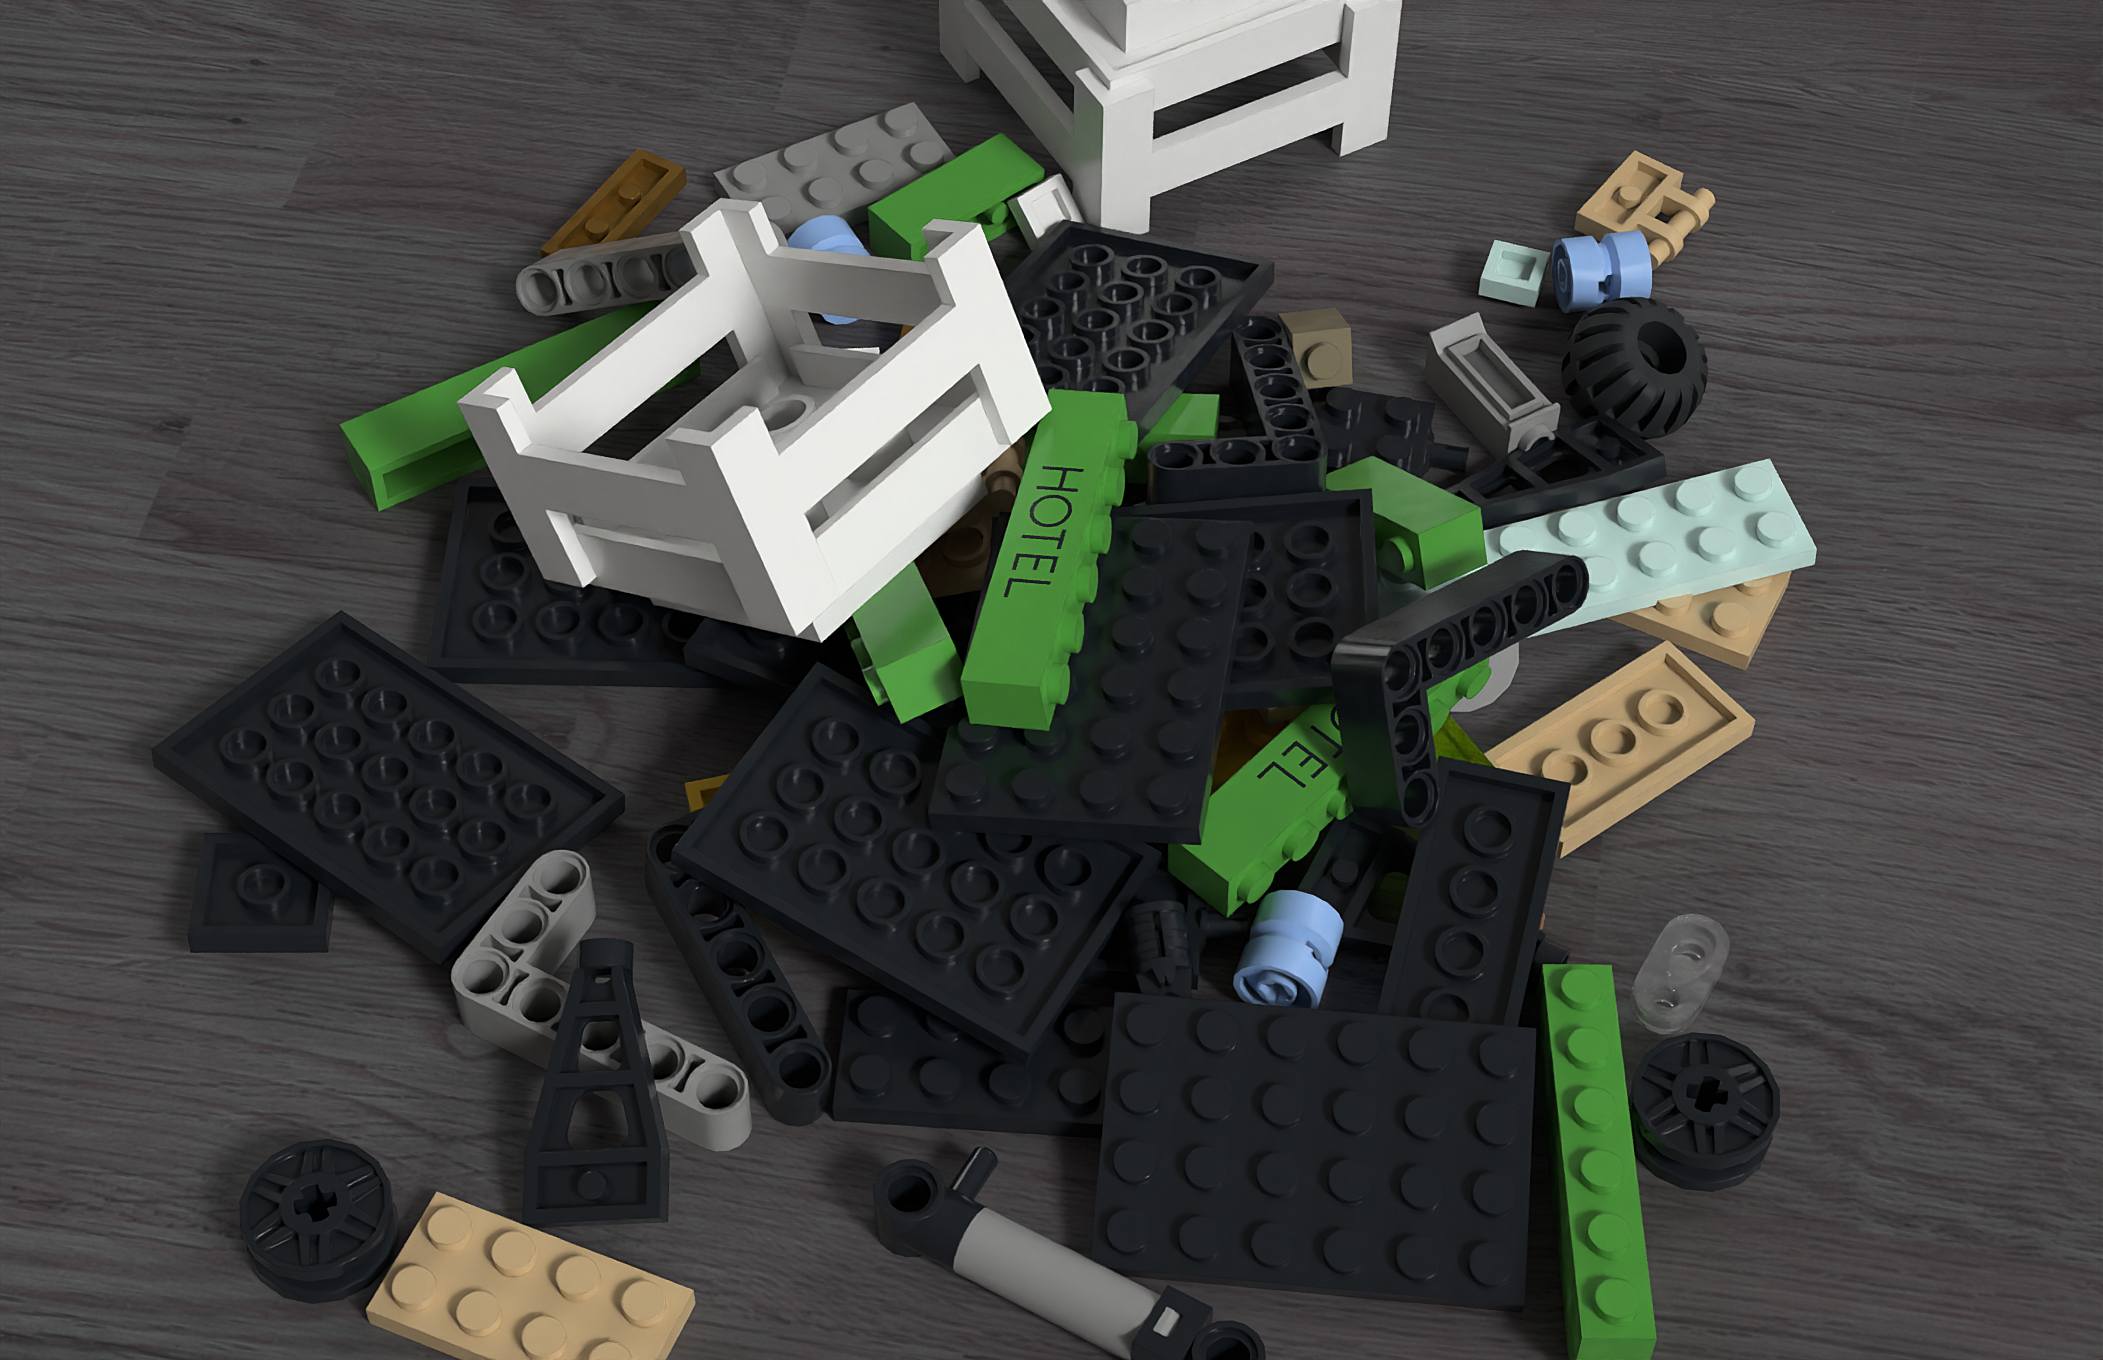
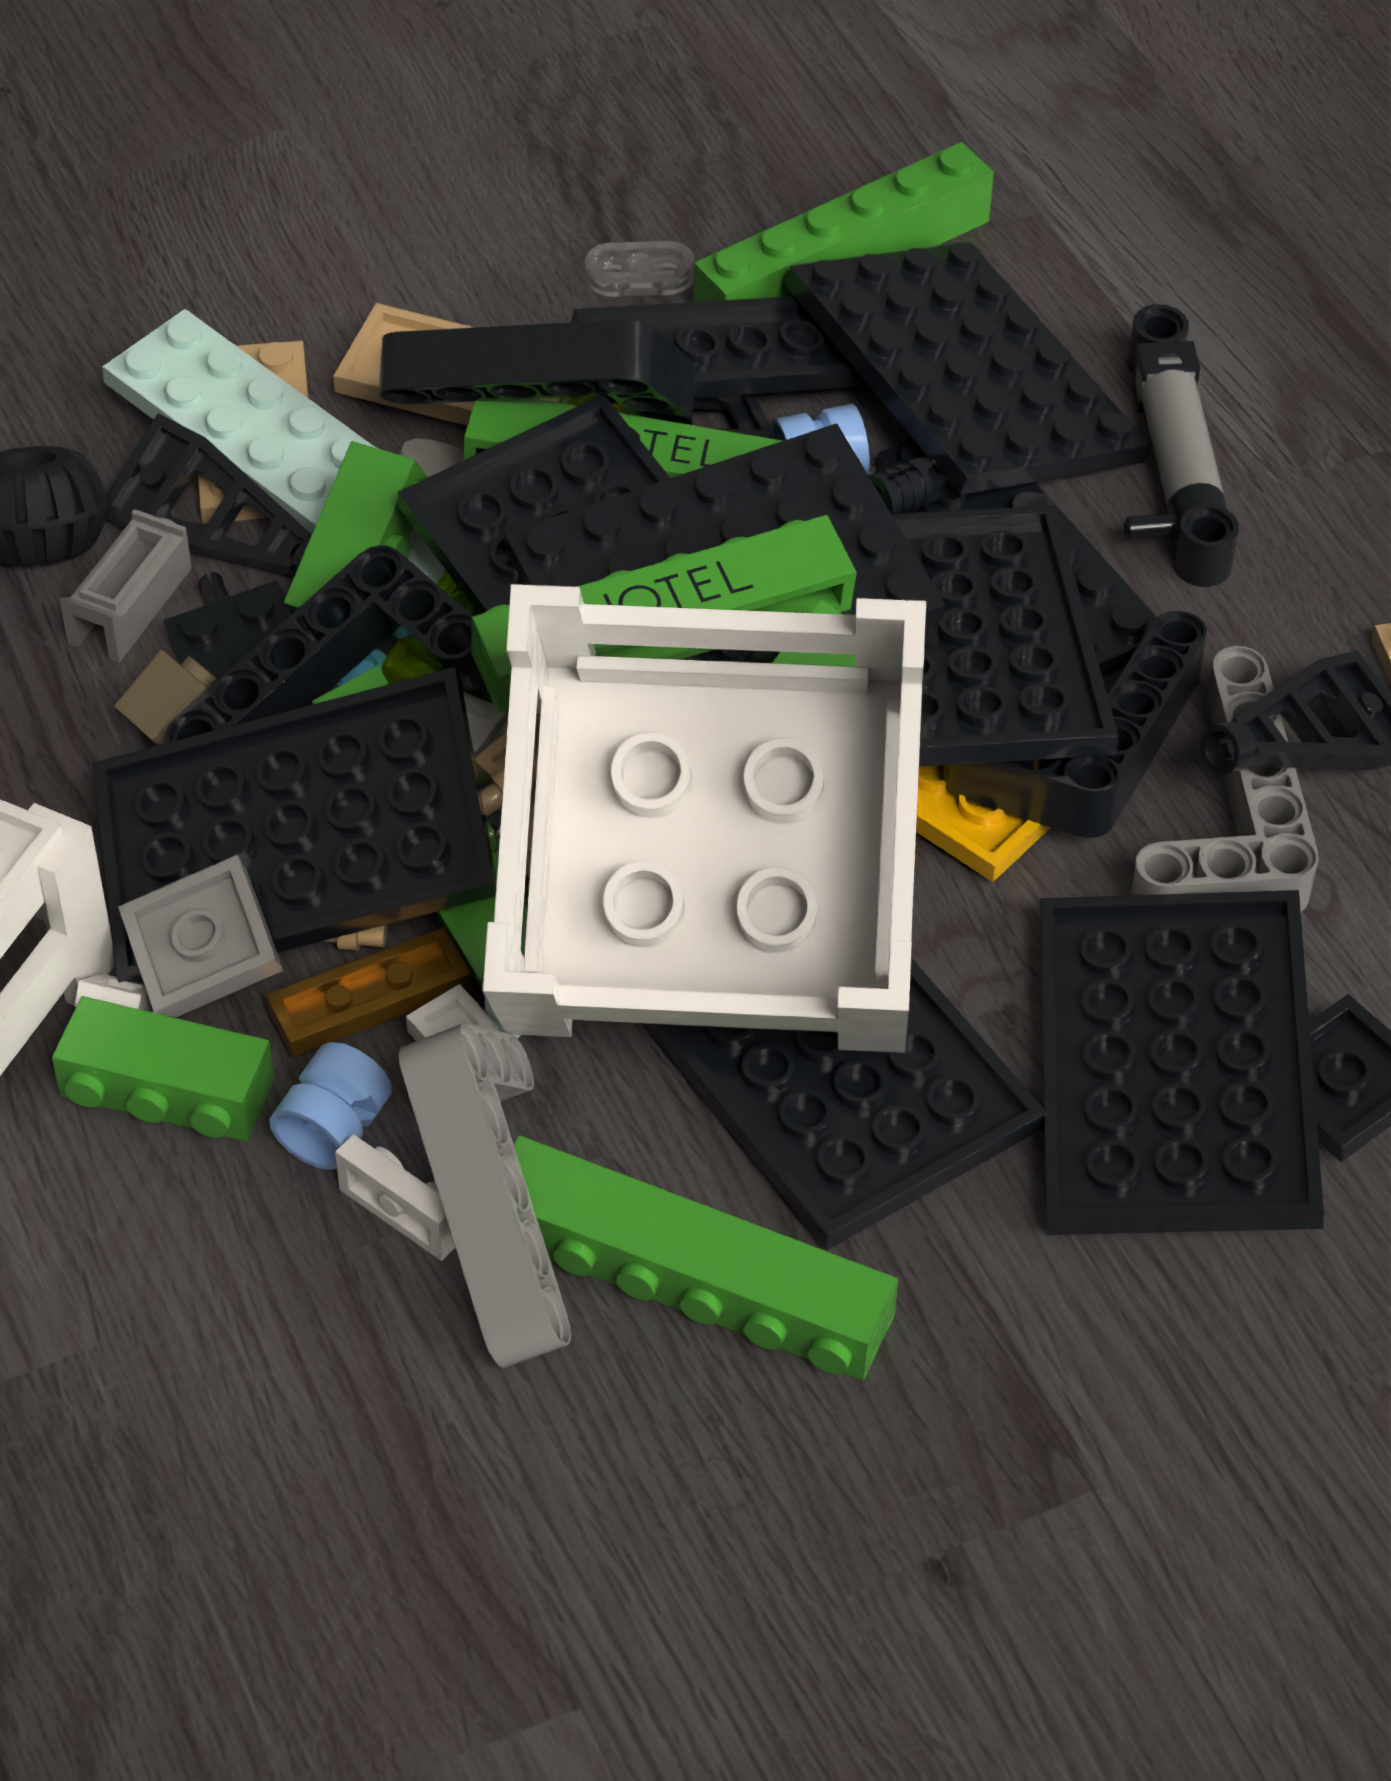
camera: 125 degrees left, 0 degrees up
(622, 203) = (379, 1354): pearl gold plate -> none
(839, 169) = (175, 1211): light grey plate -> none
(1042, 239) = (200, 938): none -> light grey plate
(1703, 1111) = (741, 201): black wheel -> none

